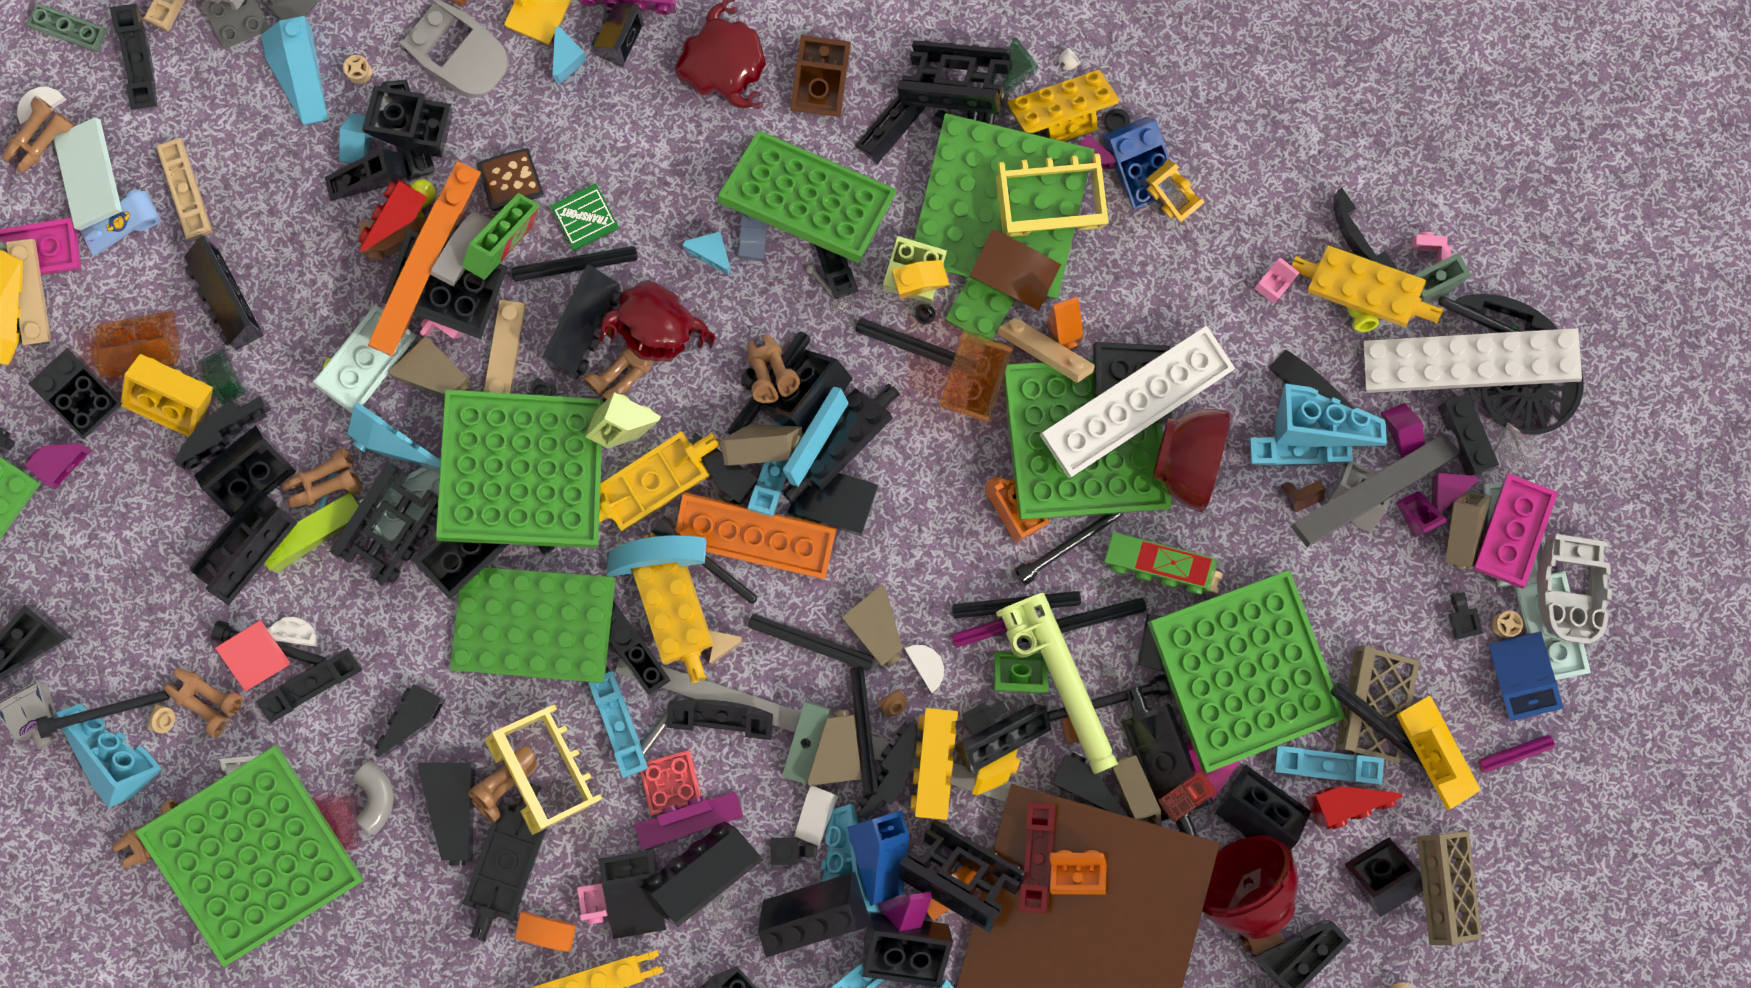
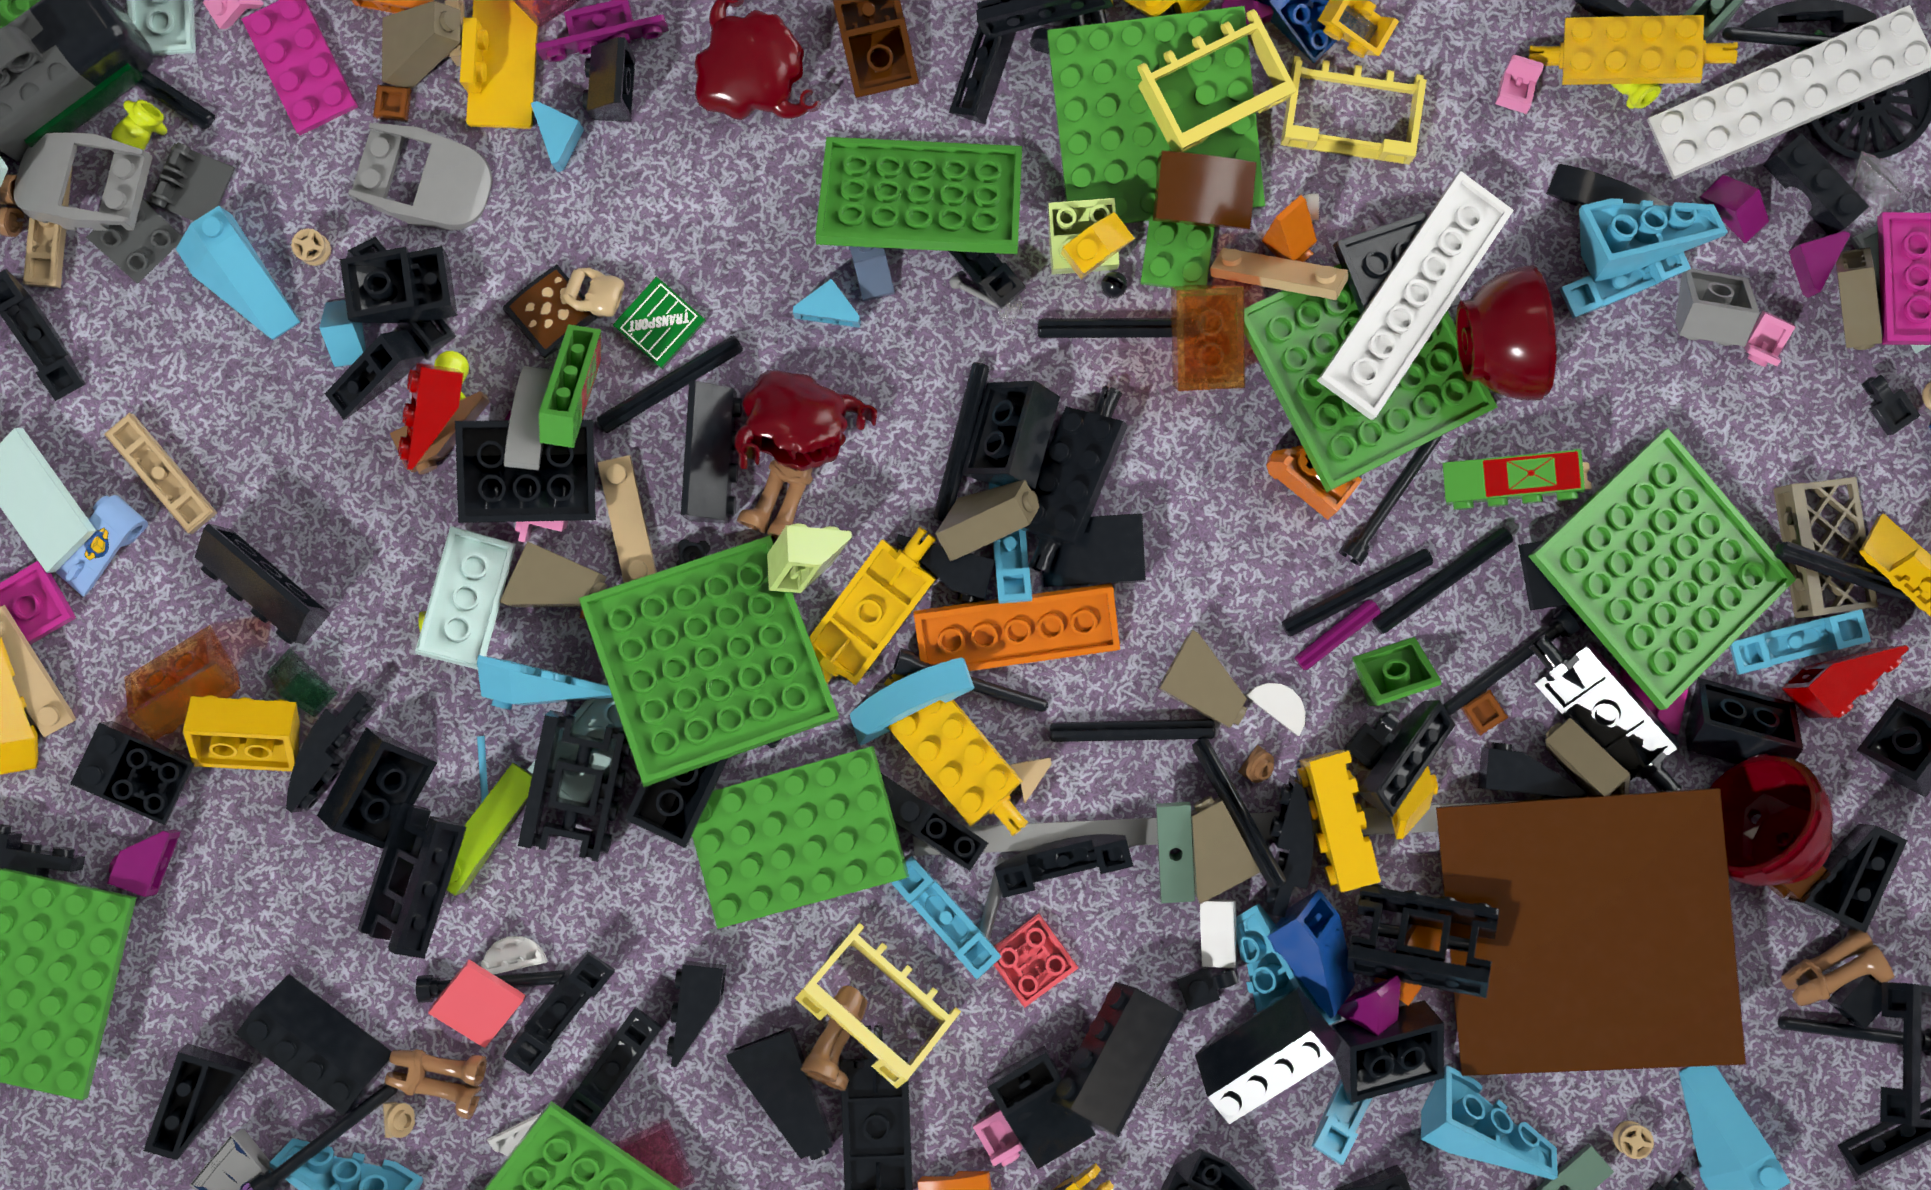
camera: 15 degrees left, 5 degrees up
(124, 640) = (315, 1044): none -> black slope
(333, 741) = (613, 1067): none -> black slope
(346, 480) = (503, 751): medium nougat piece -> none
(379, 797) = (696, 1112): light grey cylinder -> none
(425, 252) = (488, 448): orange slope -> none
(551, 182) = (602, 296): none -> tan piece
(688, 820) = (1069, 998): magenta bracket -> none
(748, 378) = (938, 443): black hinge -> none
(759, 358) = (938, 414): medium nougat piece -> none
(815, 436) = (1046, 484): medium azure tile -> none
(1037, 865) = (1506, 887): dark red slope -> none
(1046, 637) = (1412, 619): yellowish green piece -> none
(1078, 873) = (1562, 886): orange bracket -> none
(1089, 310) = (1313, 205): none -> white hinge
(1107, 261) = (1388, 150): none -> light yellow hinge
(1187, 796) = (1654, 744): clear red tile -> none
(1305, 496) = (1645, 338): reddish brown tile -> none
(1375, 490) = (1737, 294): dark grey tile -> none
(1390, 534) = (1768, 339): none -> bright pink bracket
(1419, 514) = (1794, 301): magenta slope -> none

